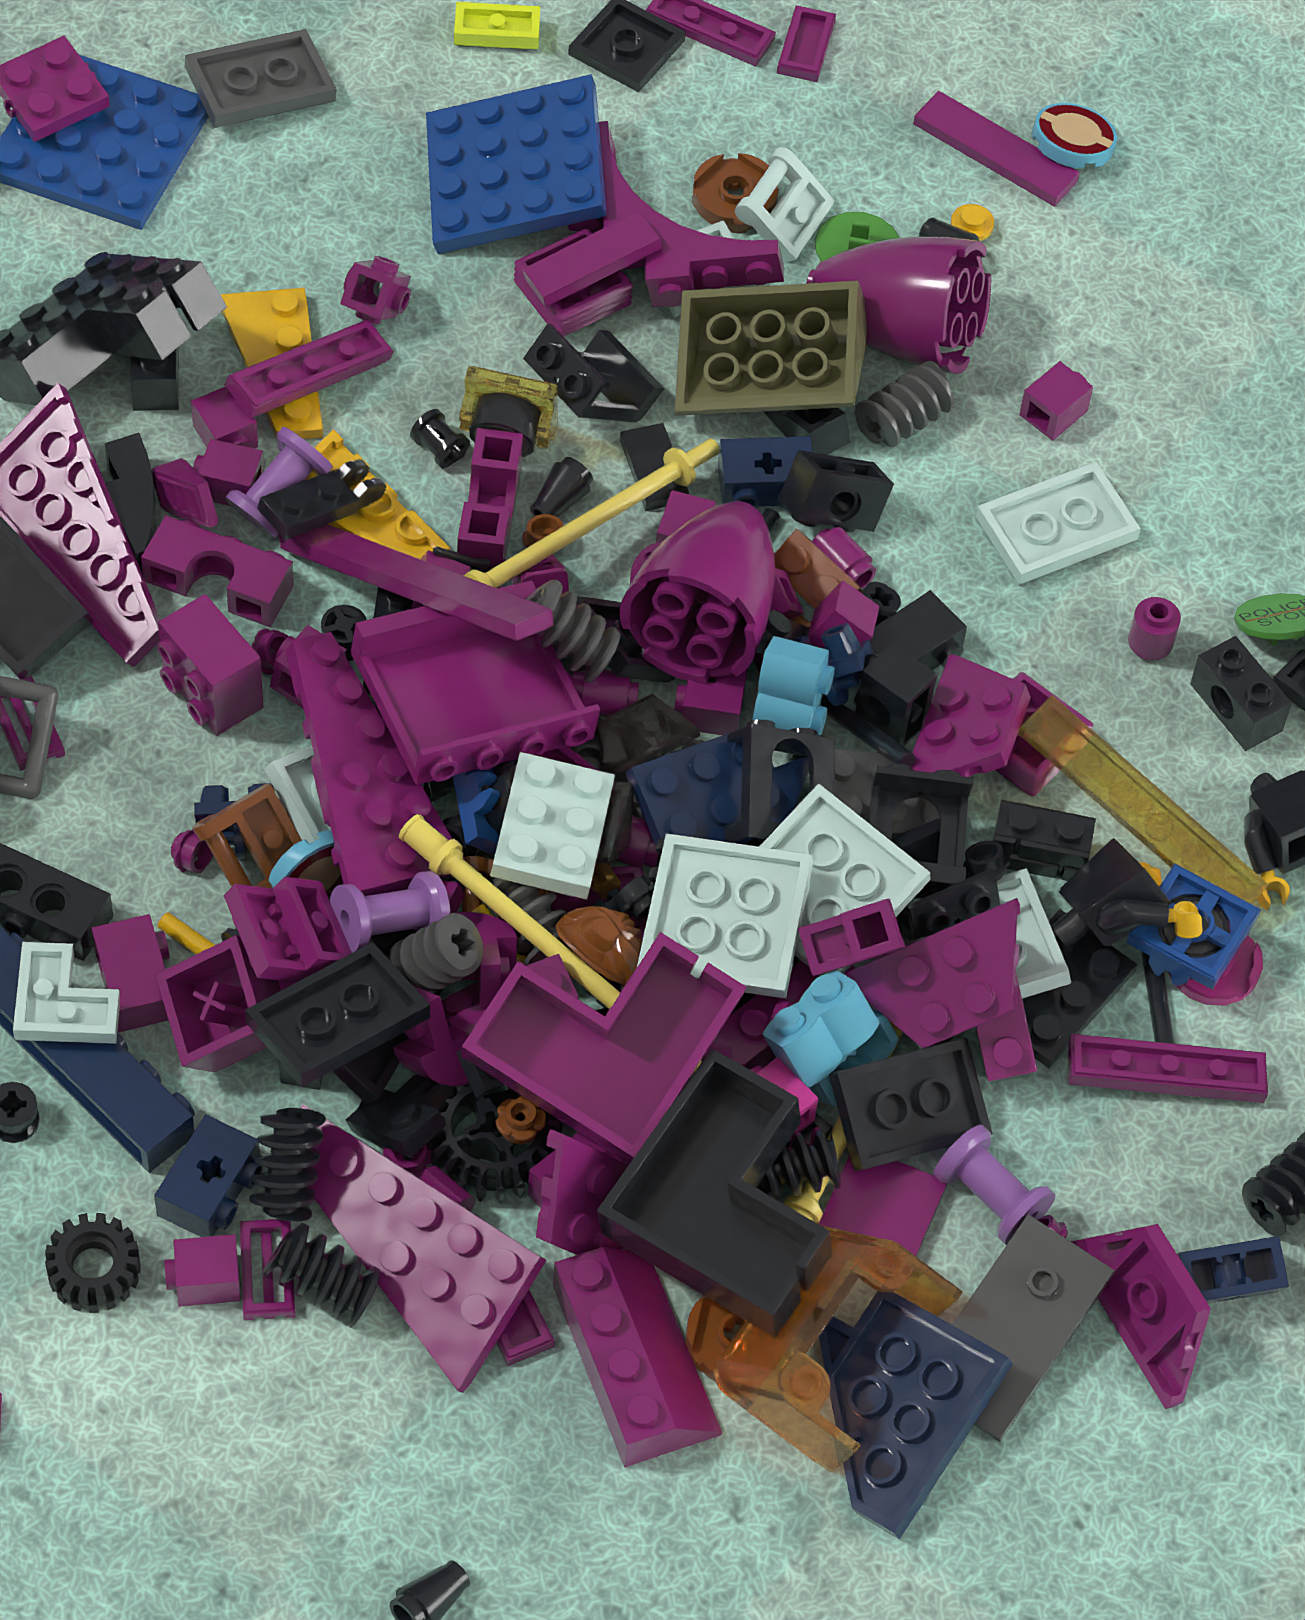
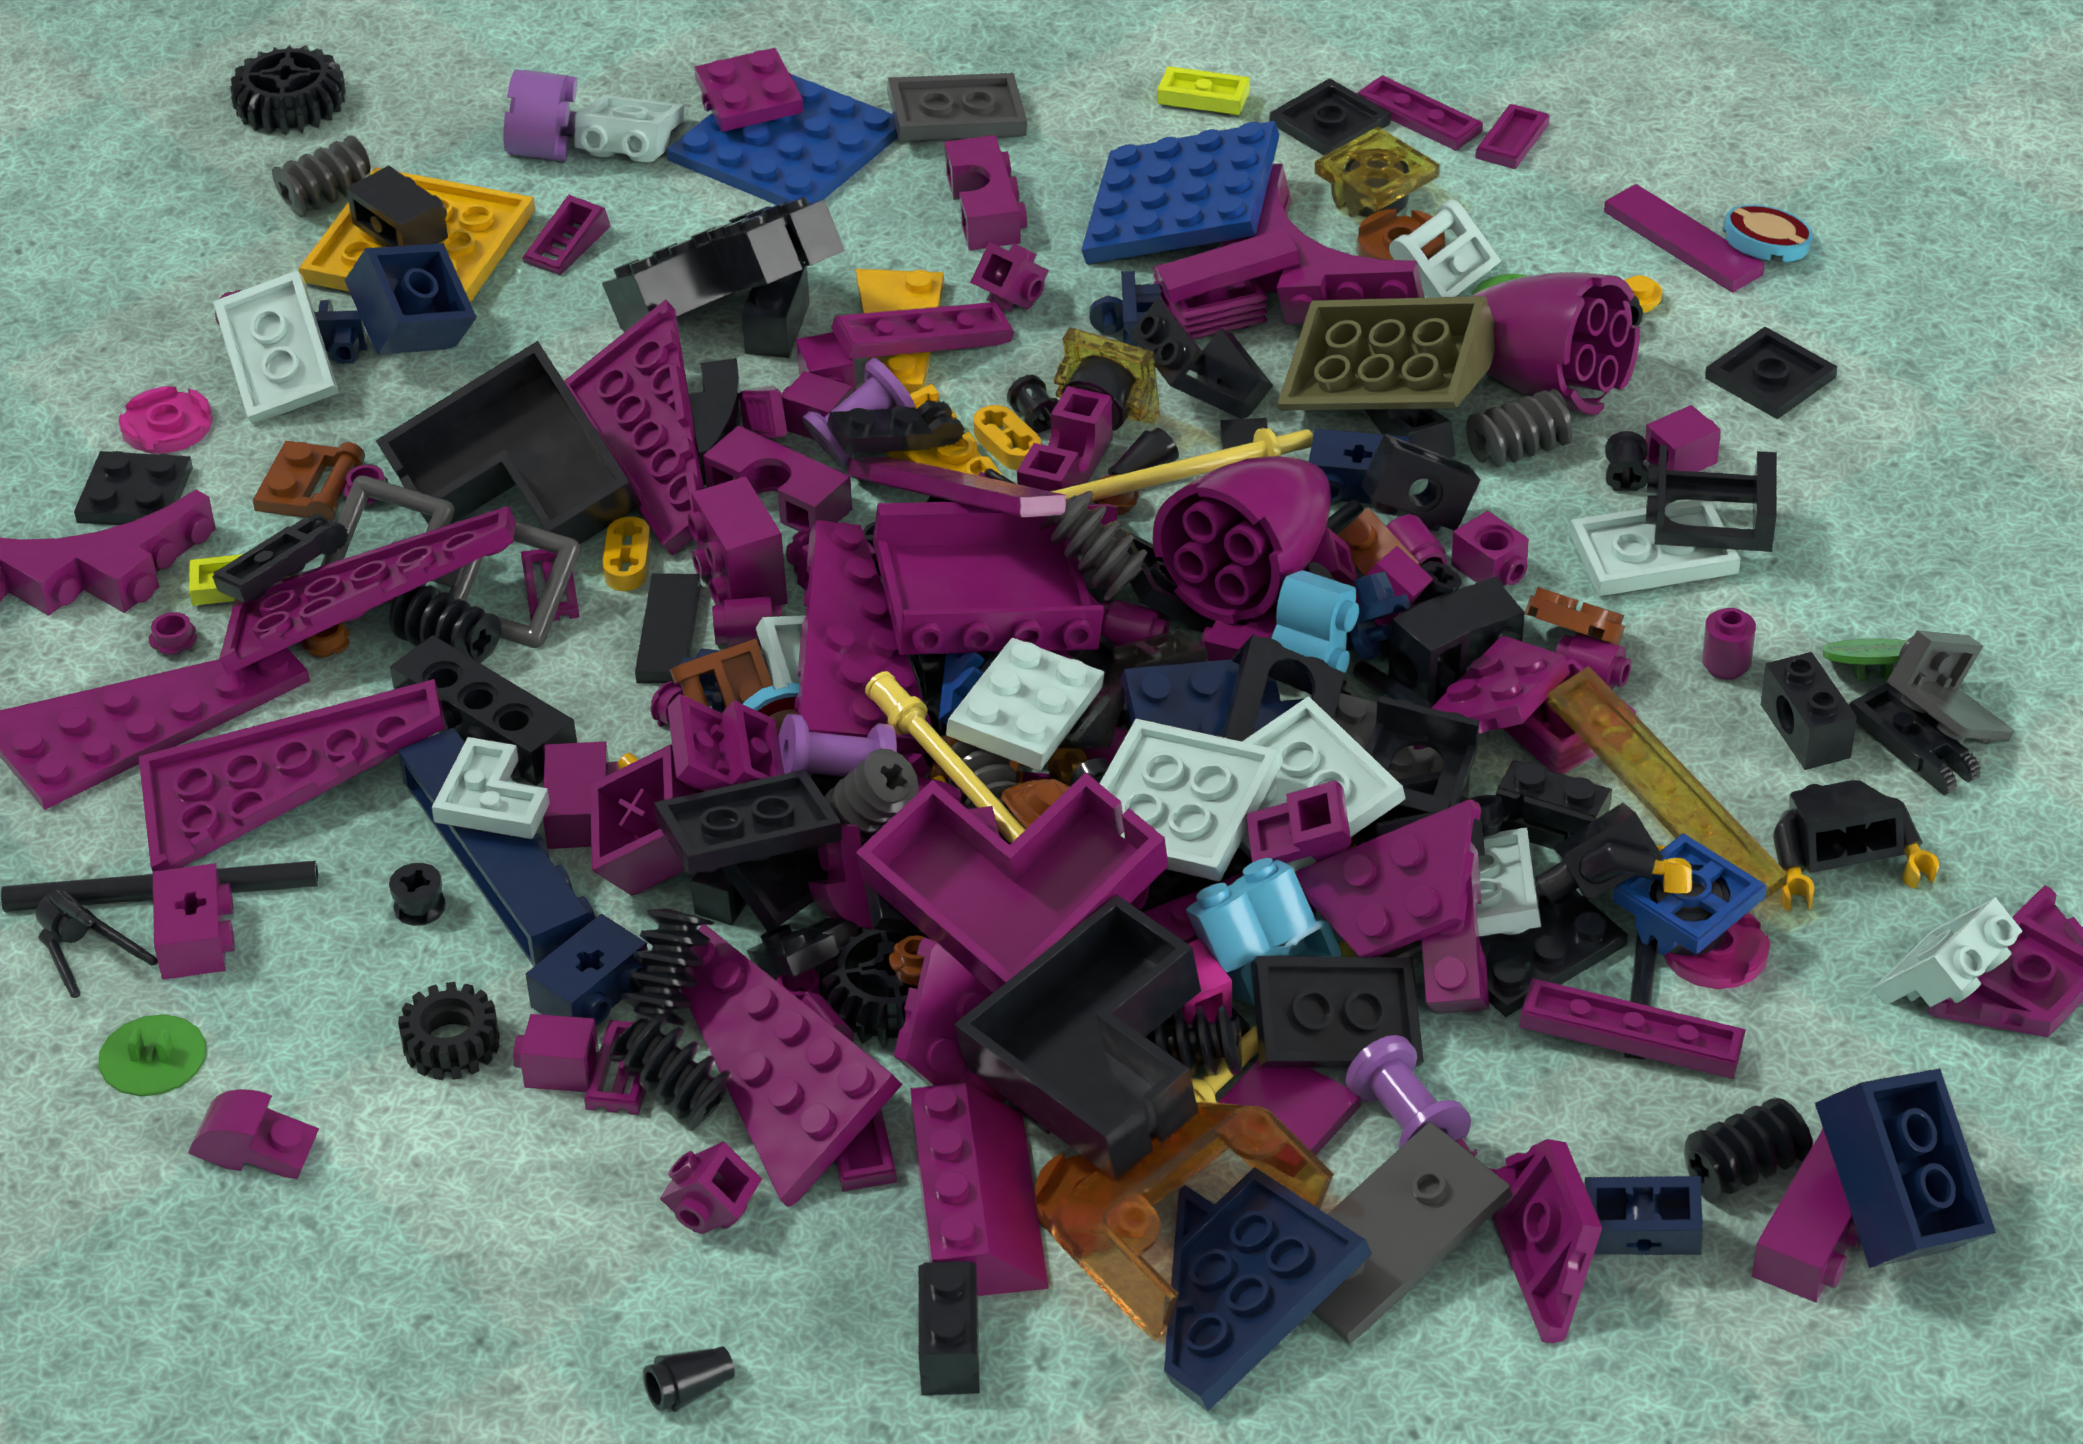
camera: 20 degrees right, 15 degrees down
(101, 673) = (617, 553): none -> yellow beam
(158, 757) = (667, 625): none -> black tile
(237, 743) = (738, 619): none -> magenta brick
(309, 157) = (986, 191): none -> magenta arch
(396, 1398) = (710, 1188): none -> magenta brick
(425, 475) = (1000, 441): none -> yellow beam
(497, 316) = (1113, 314): none -> dark blue hips
(653, 1504) = (948, 1328): none -> black brick
(696, 114) = (1376, 173): none -> clear yellow piece
(910, 540) = (1489, 550): none -> magenta brick
(1010, 428) = (1626, 456): none -> black bush
(1013, 624) = (1562, 612): none -> dark orange plate
(1038, 661) = (1603, 657): none -> magenta brick
(1113, 299) = (1771, 372): none -> black tile
(1143, 448) = (1723, 487): none -> black panel

